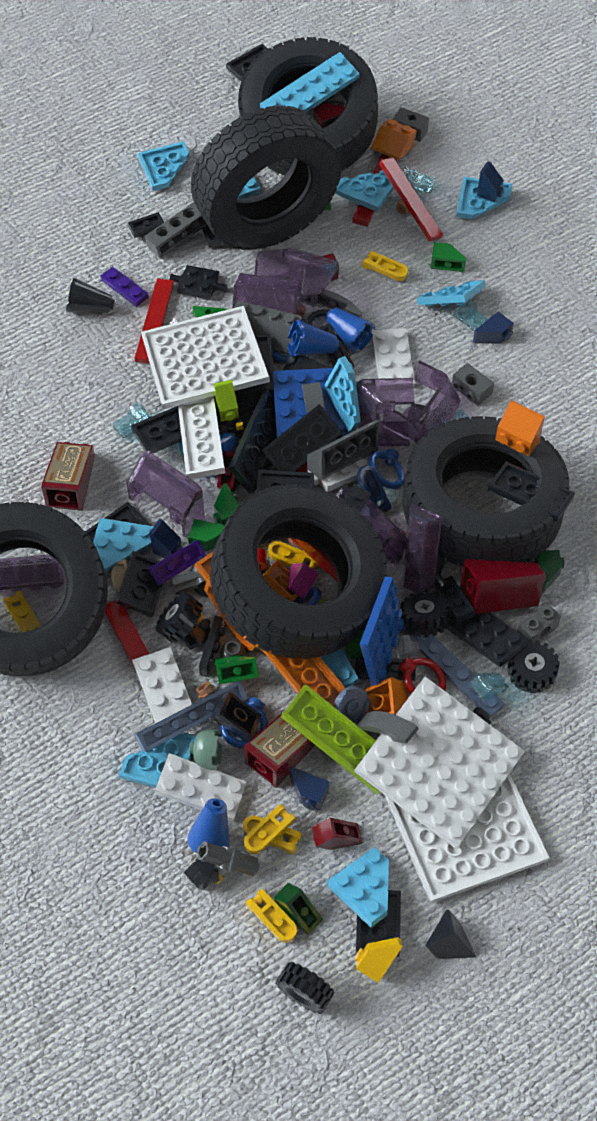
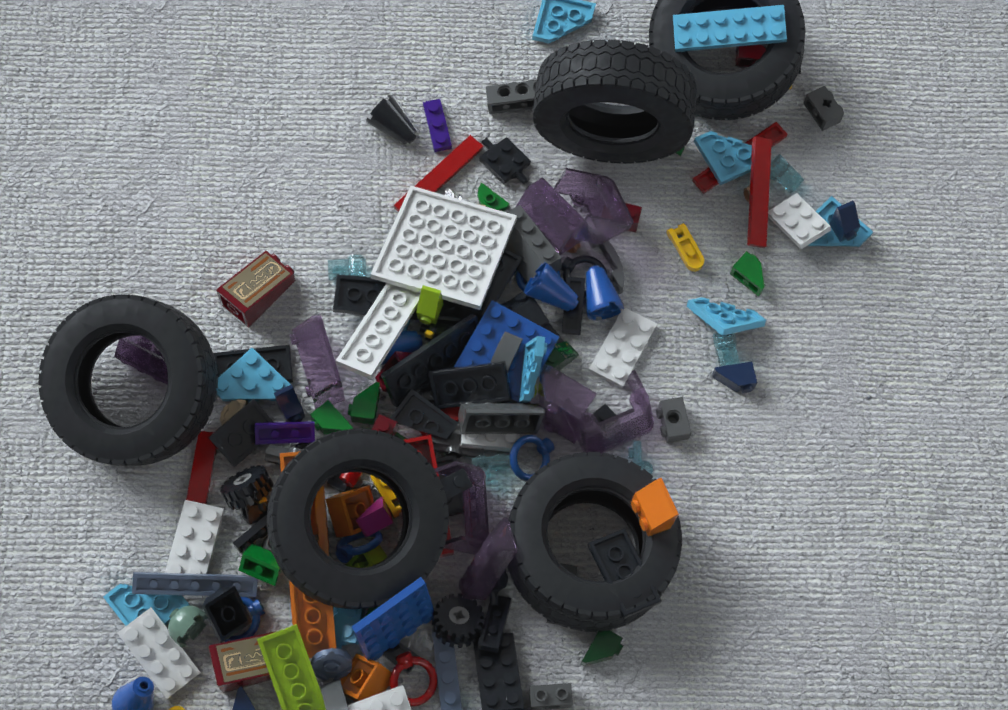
camera: 30 degrees right, 10 degrees up
(23, 613) = (131, 397): yellow plate -> none
(145, 224) = (499, 72): black plate -> none
(205, 690) = (226, 566): nougat plate -> none
(370, 482) = (500, 471): dark blue plate -> none
(394, 139) = (793, 117): orange slope -> none
(454, 204) = (798, 221): none -> white plate
(501, 585) = (541, 639): dark red slope -> none

